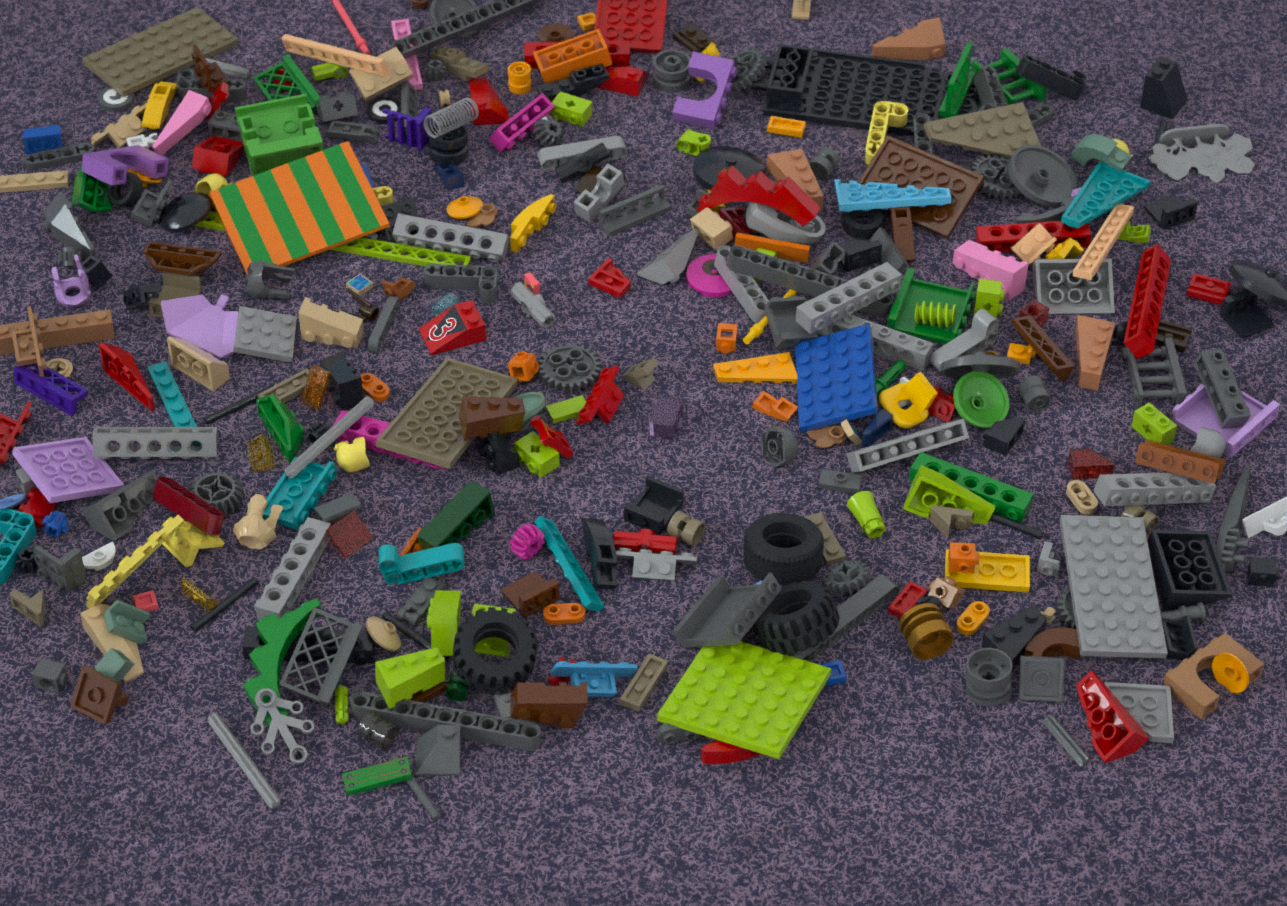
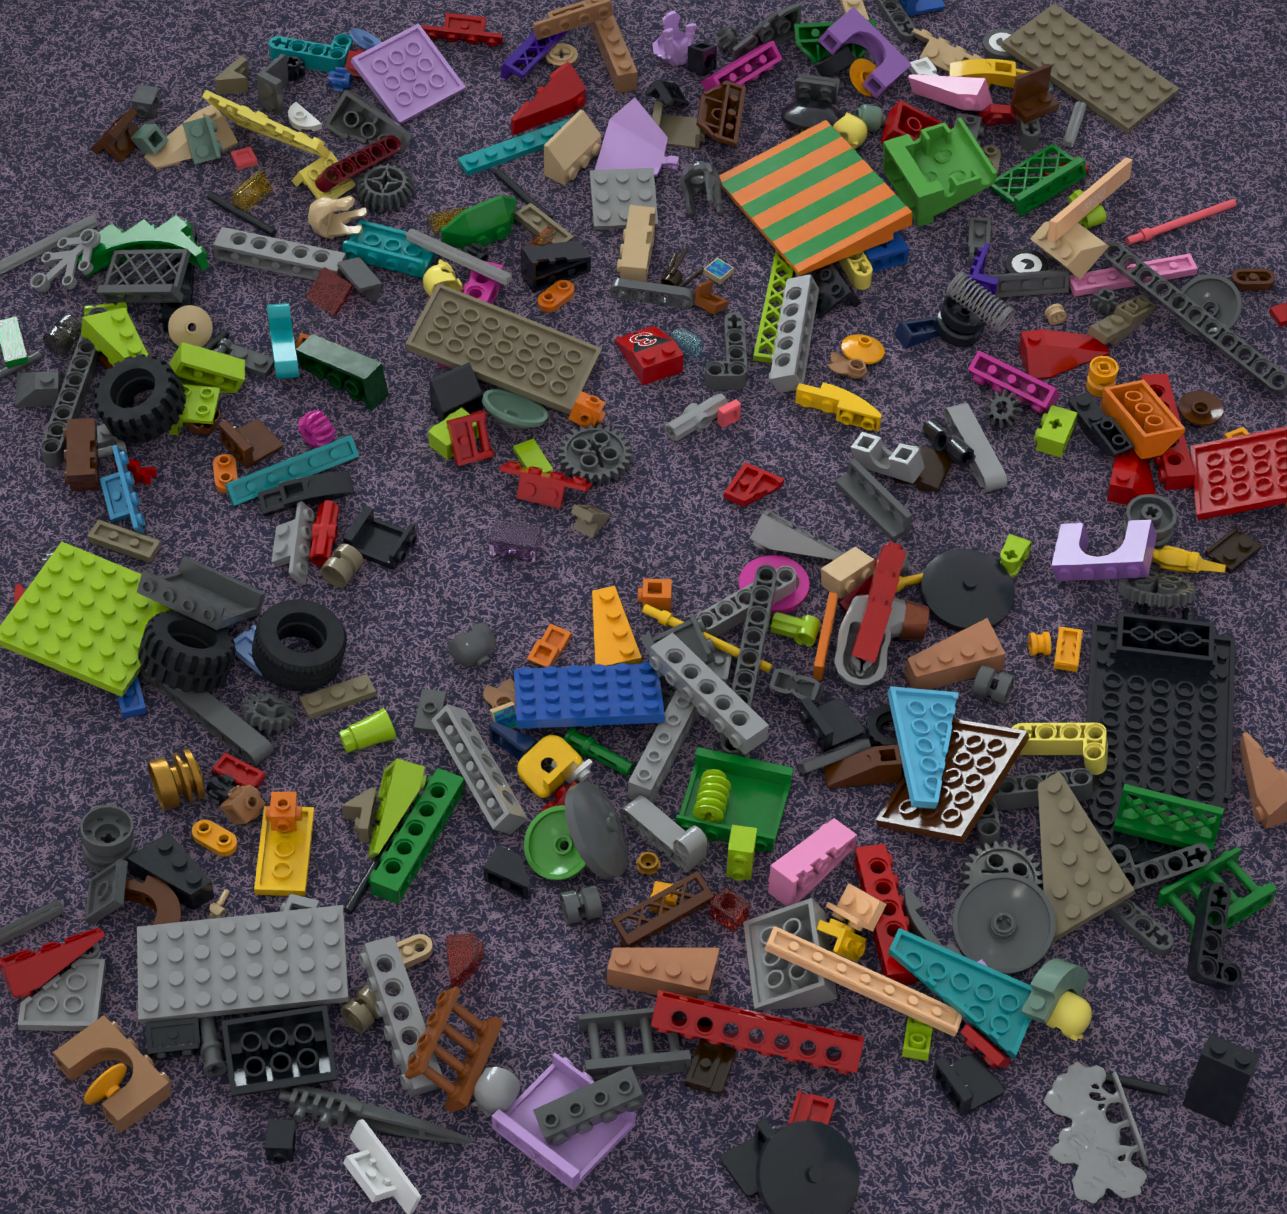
camera: 85 degrees right, 5 degrees up
(117, 249) = (746, 67): none -> dark pink brick
(164, 435) = (448, 130): light grey brick -> none
(192, 176) = (872, 117): none -> sand green head
(346, 109) = (1010, 217): dark grey brick -> none
(490, 415) = (465, 362): reddish brown wedge -> none
(782, 139) = (1039, 643): none -> light orange wheel
(1146, 196) = (976, 1041): none -> red plate
(1154, 424) = (531, 1034): lime brick -> none

